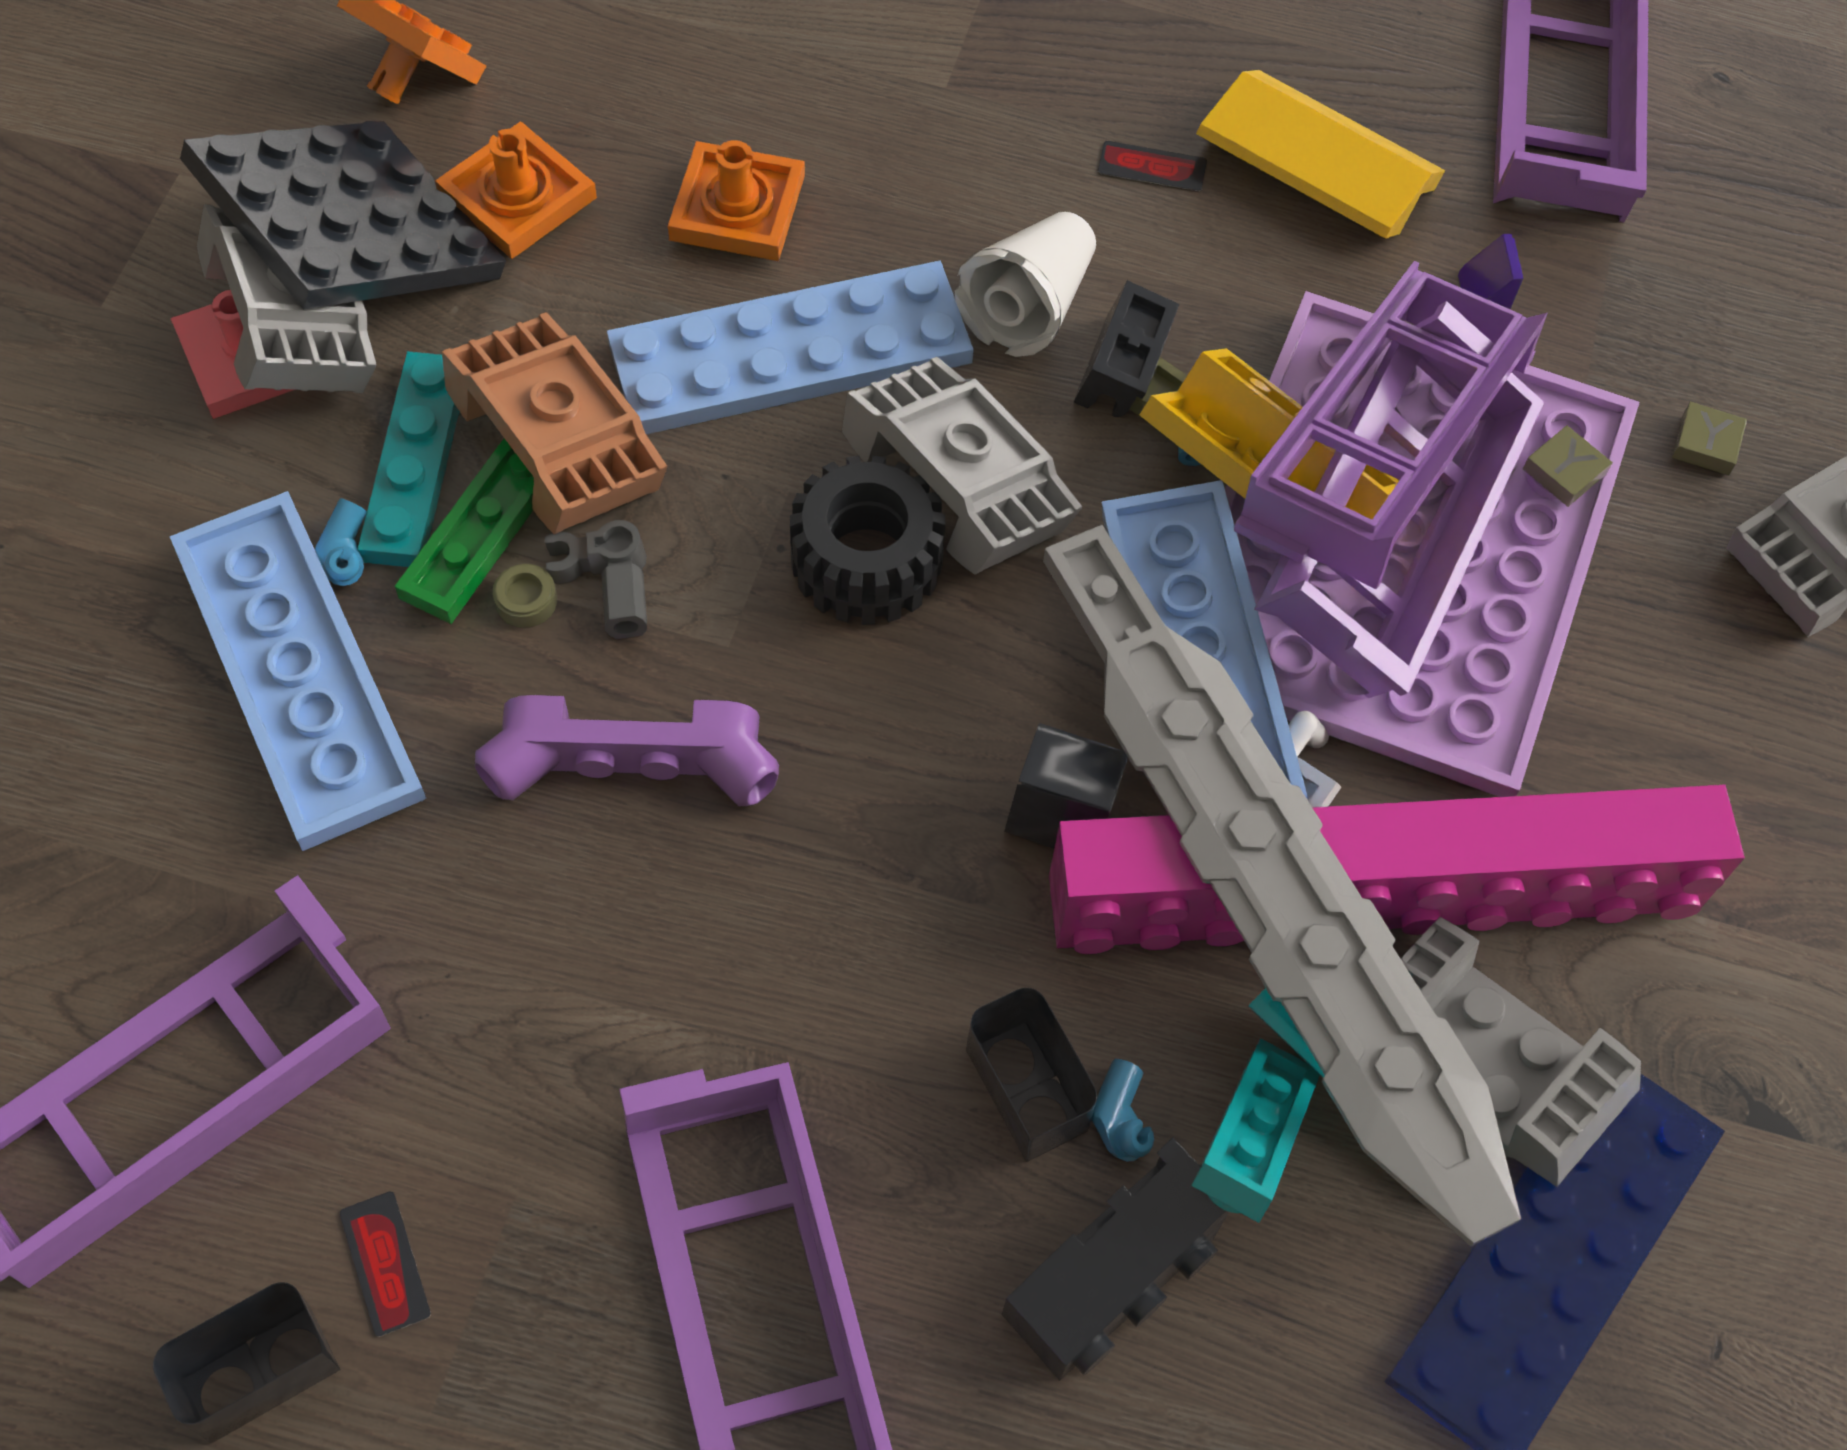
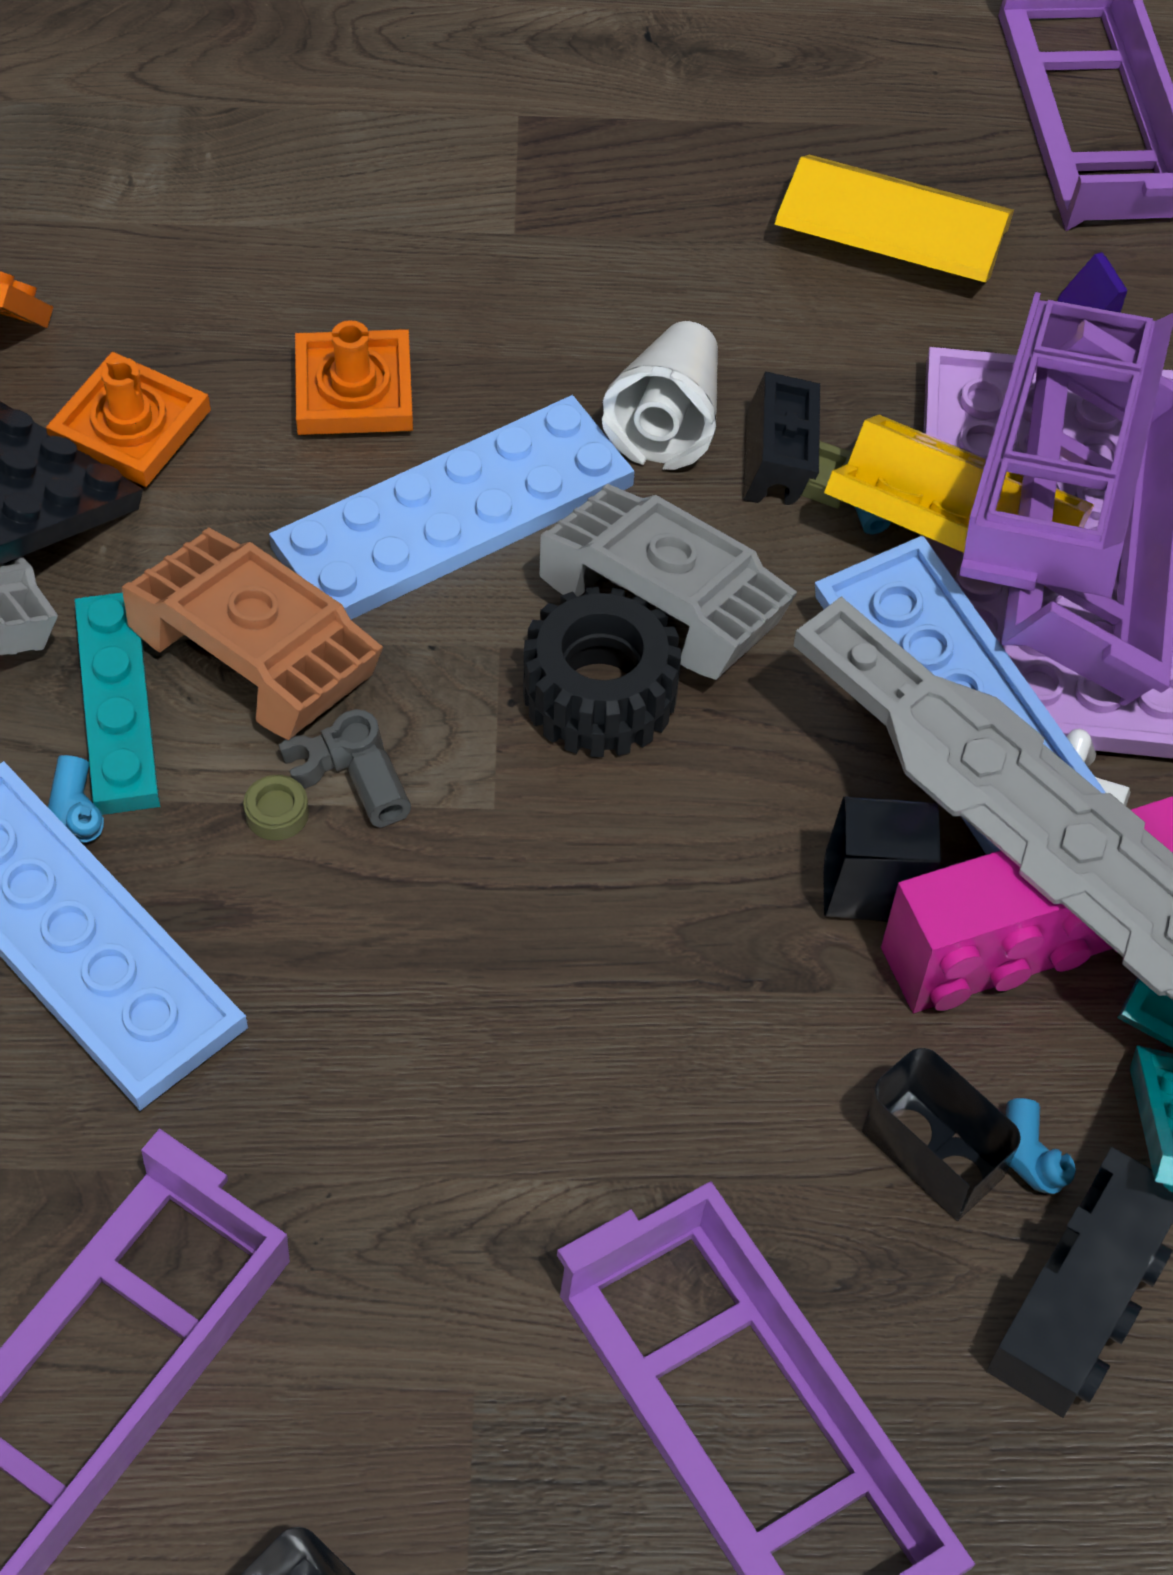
camera: 15 degrees left, 5 degrees down
(385, 1264) = (366, 1492): sticker -> none
(470, 537) = (205, 759): green plate -> none
(543, 739) = (348, 939): medium lavender plate -> none
(1152, 165) = (738, 264): sticker -> none

